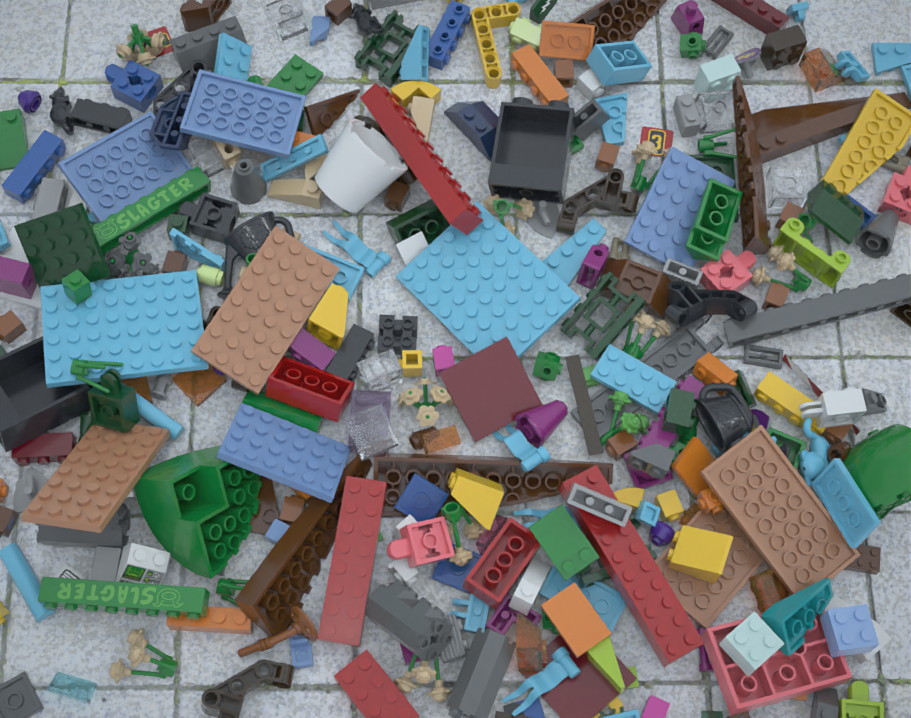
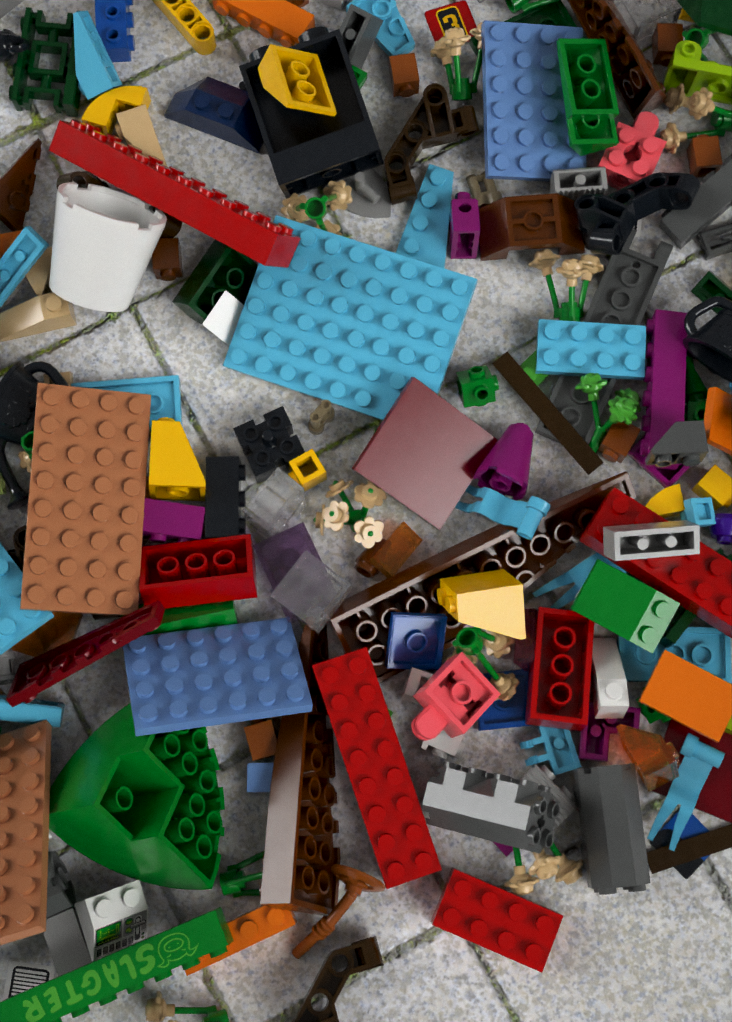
camera: 25 degrees left, 10 degrees up
(209, 398) = (80, 652): none -> dark red wing
(267, 508) = (231, 758): reddish brown wing -> none
(301, 652) = (371, 912): medium blue slope -> none
(359, 251) = (158, 356): medium azure flag -> none
(438, 336) = (323, 414): none -> dark tan piece
(442, 358) = (343, 445): dark pink brick -> none
(531, 125) = (296, 80): none -> yellow slope
(590, 305) = (532, 292): dark green fence -> none
(678, 411) = (673, 365): dark green brick -> none
(712, 370) = (683, 290): orange brick -> none

